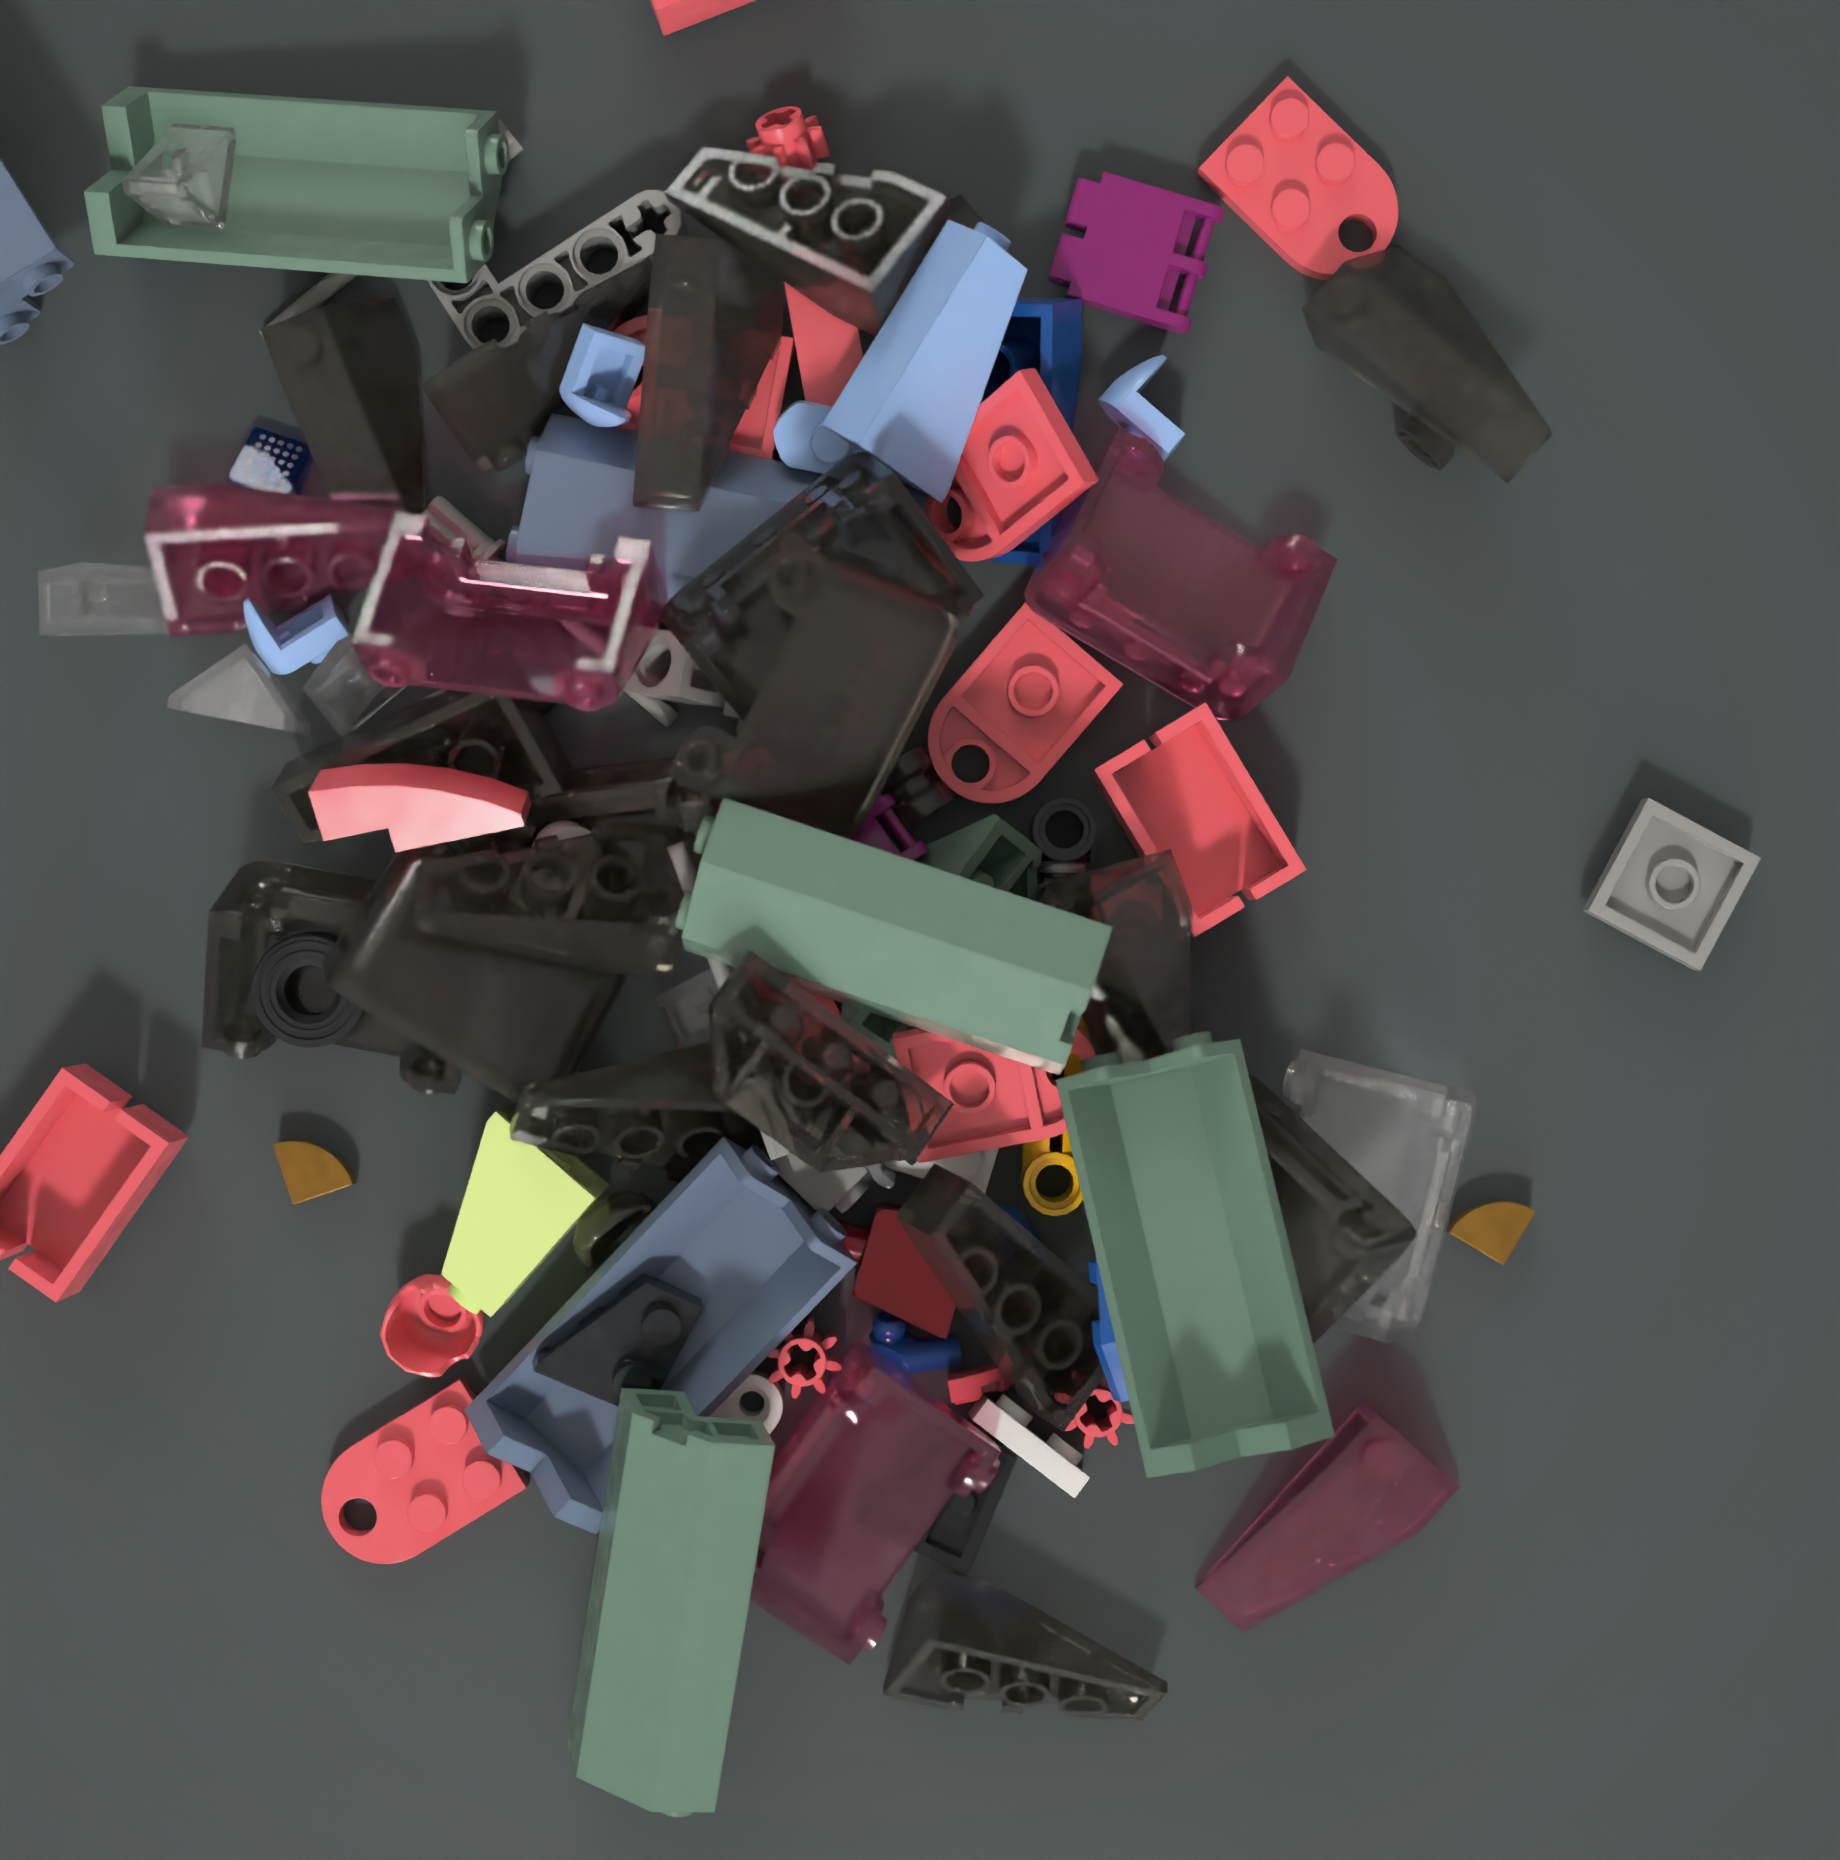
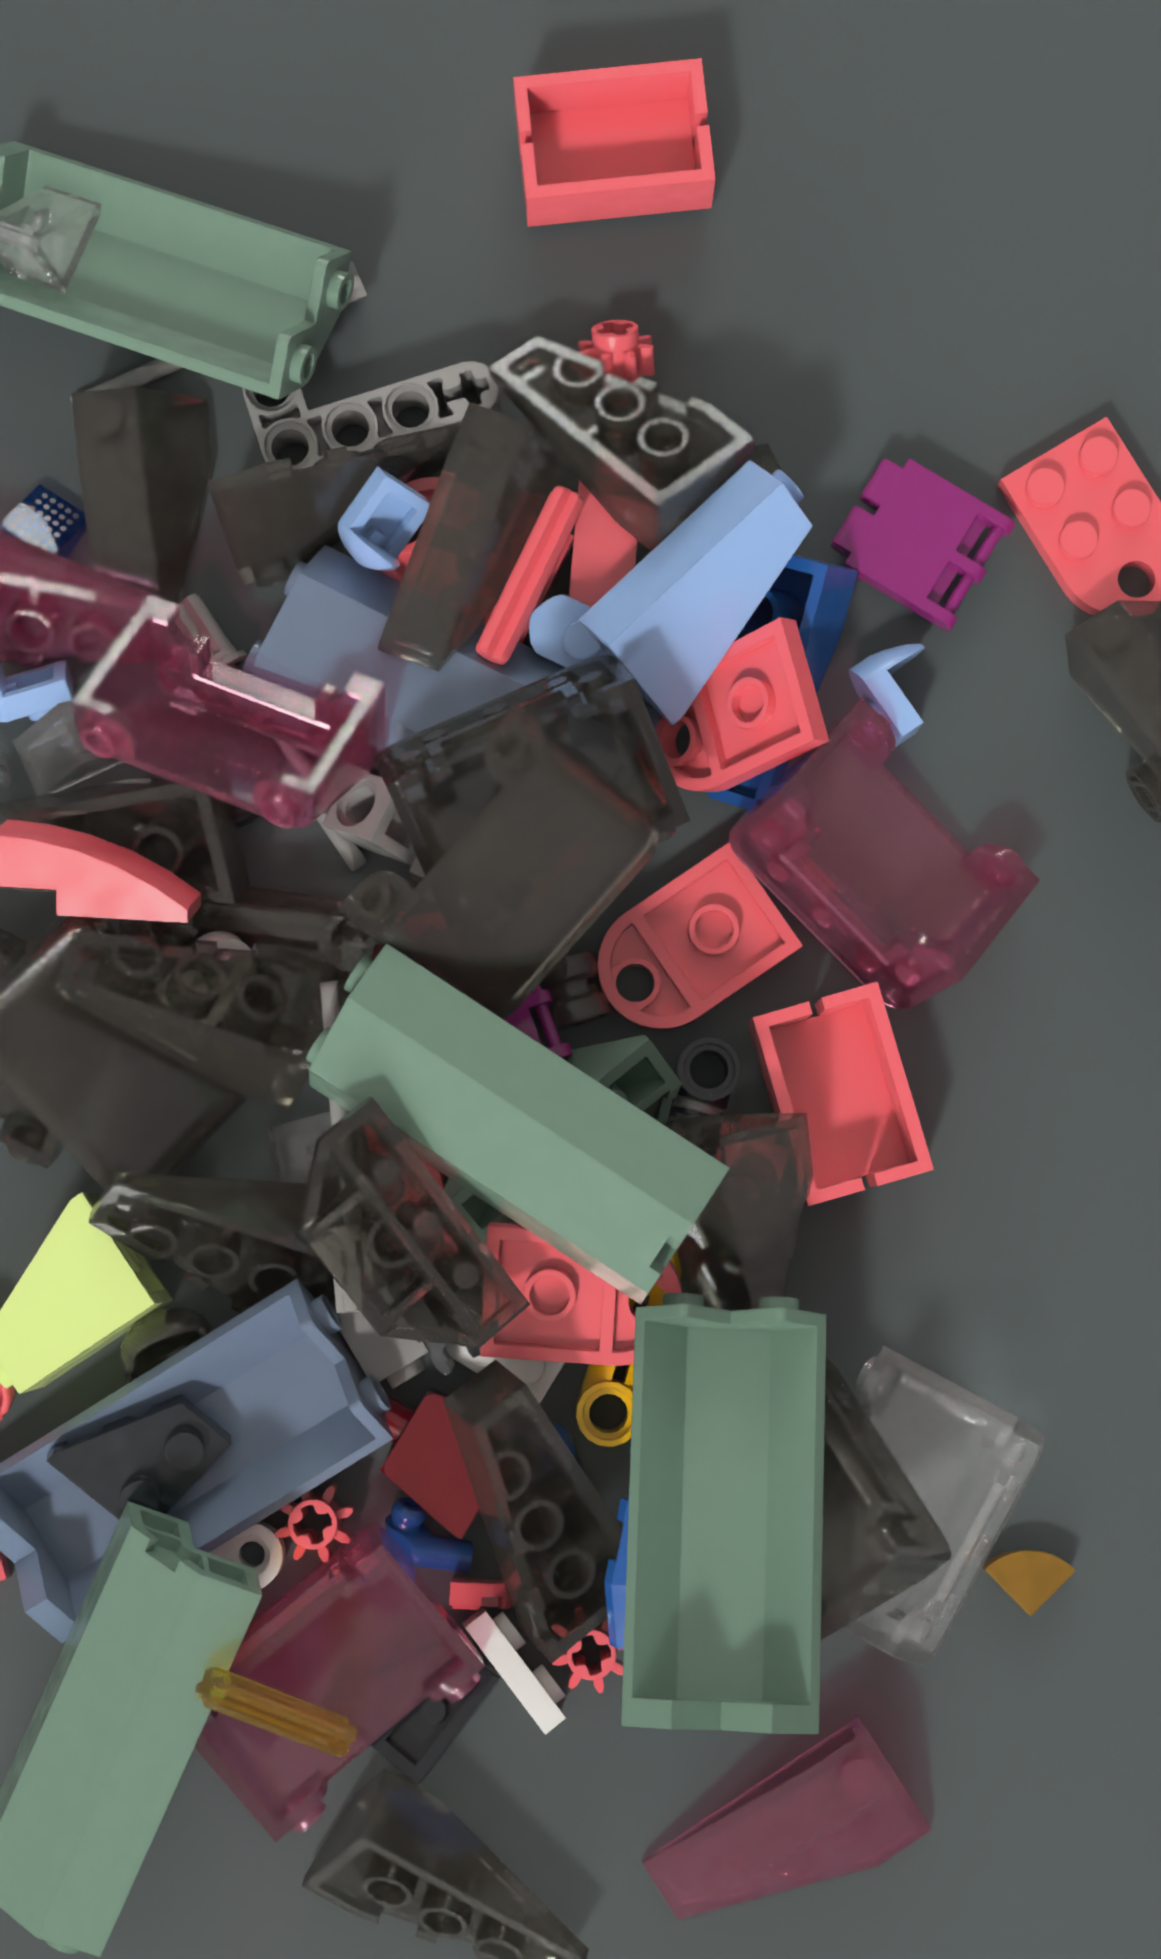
camera: 10 degrees right, 5 degrees down
(762, 391) = (529, 575): none -> coral axle
(816, 1547) = (275, 1711): none -> clear yellow axle

